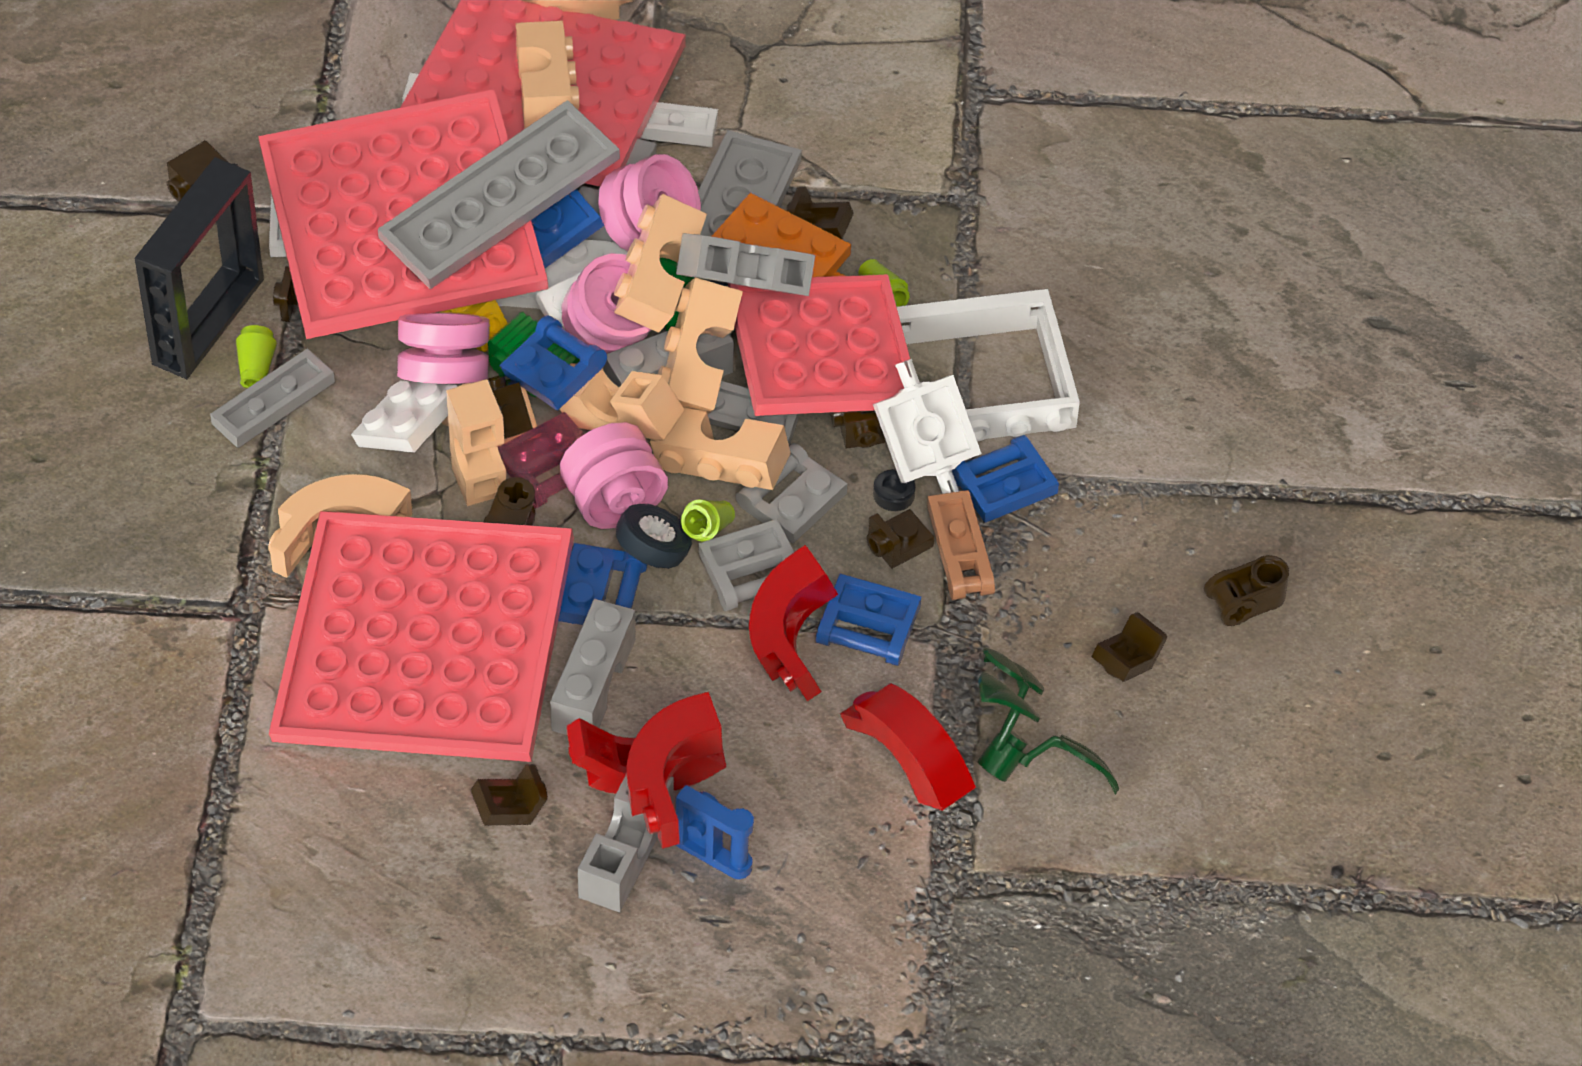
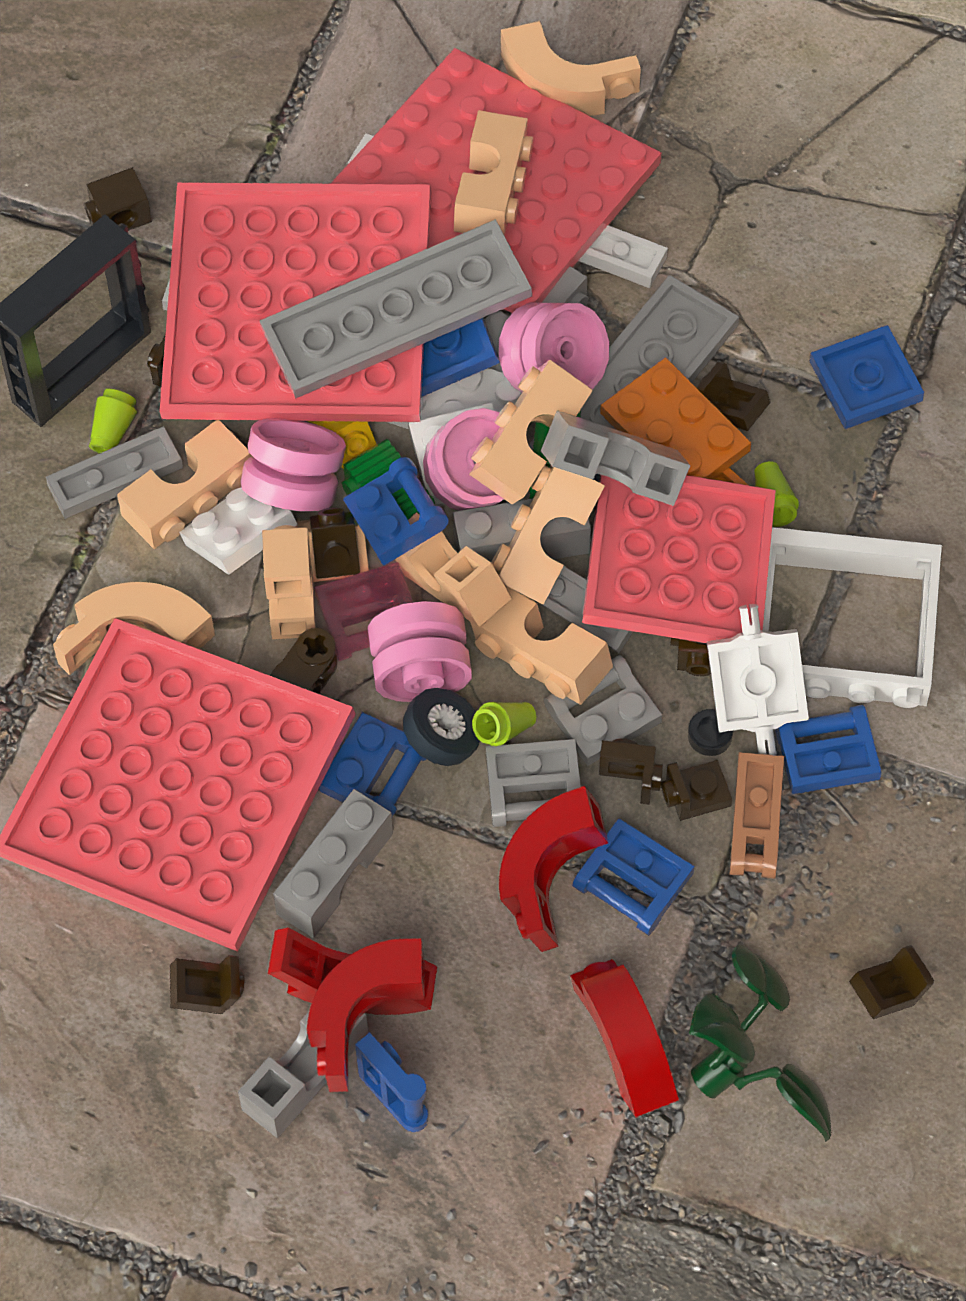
camera: 20 degrees right, 10 degrees up
(329, 417) = (164, 509): none -> light nougat arch
(835, 527) = (631, 761): none -> dark brown bracket
(930, 176) = (866, 377): none -> blue plate

